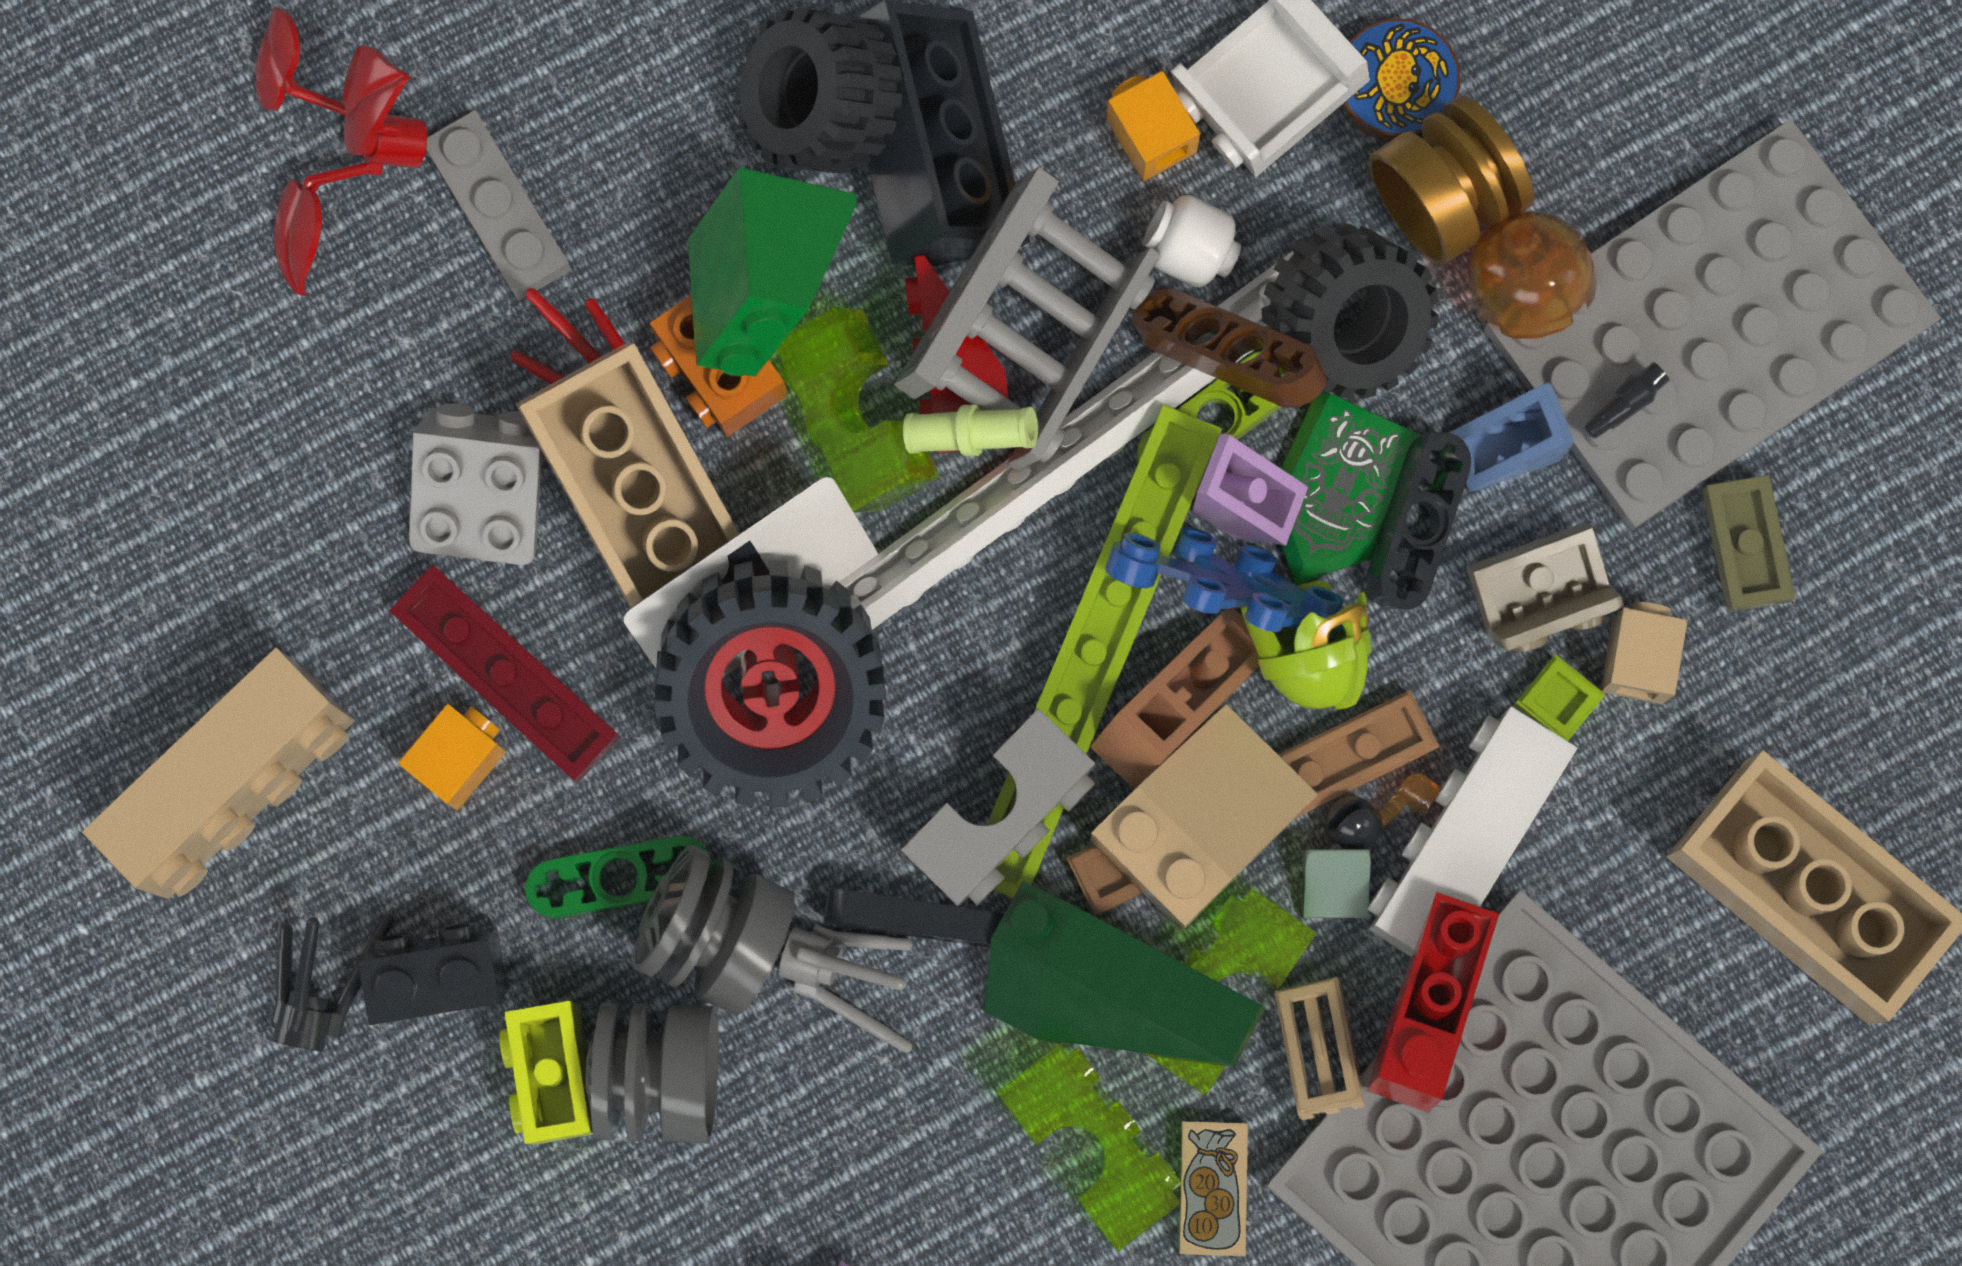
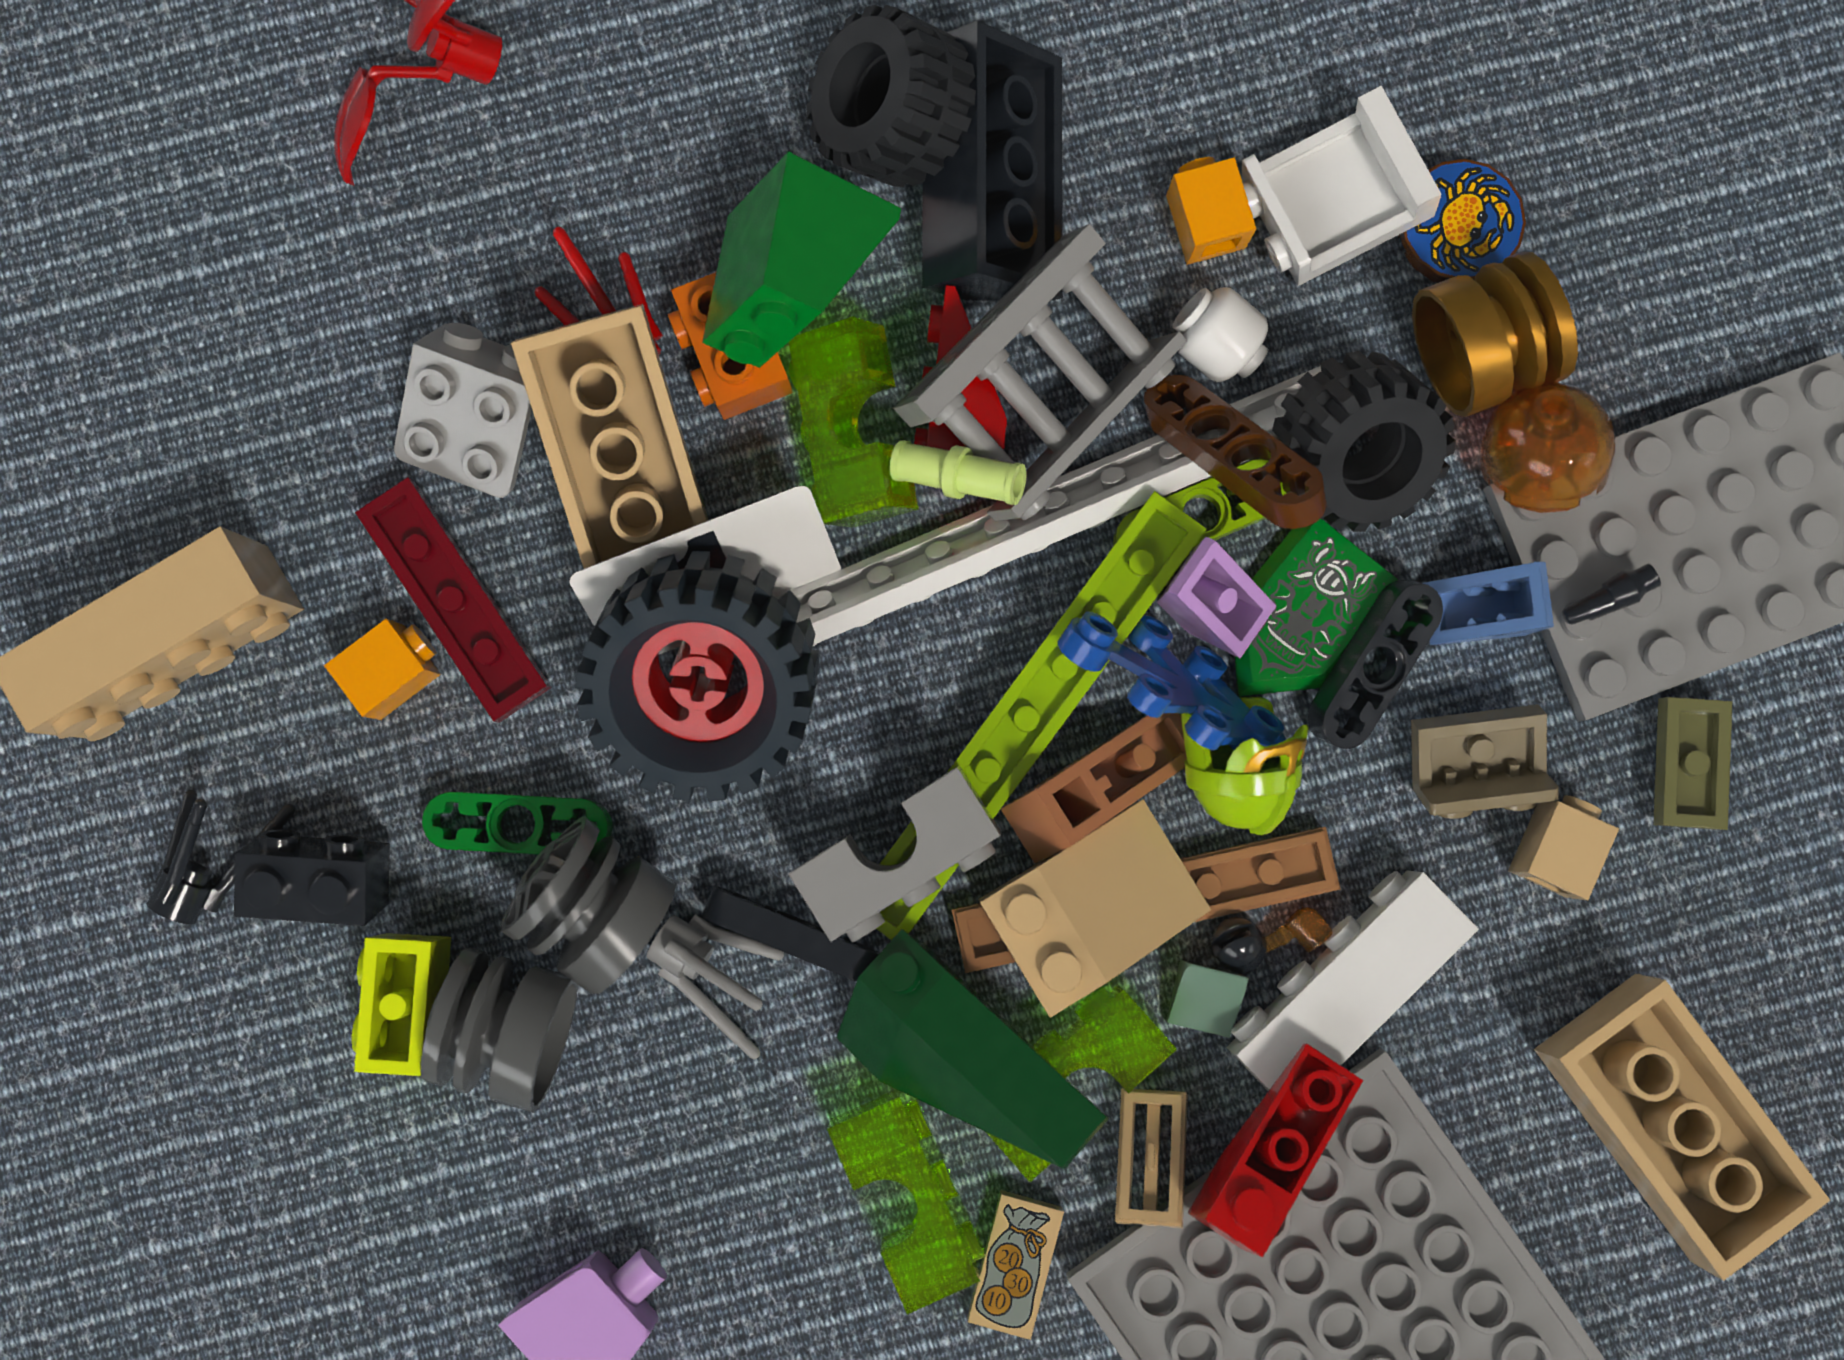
camera: 15 degrees right, 5 degrees up
(496, 205) = (555, 139): light grey plate -> none
(1559, 698) = (1467, 870): lime tile -> none

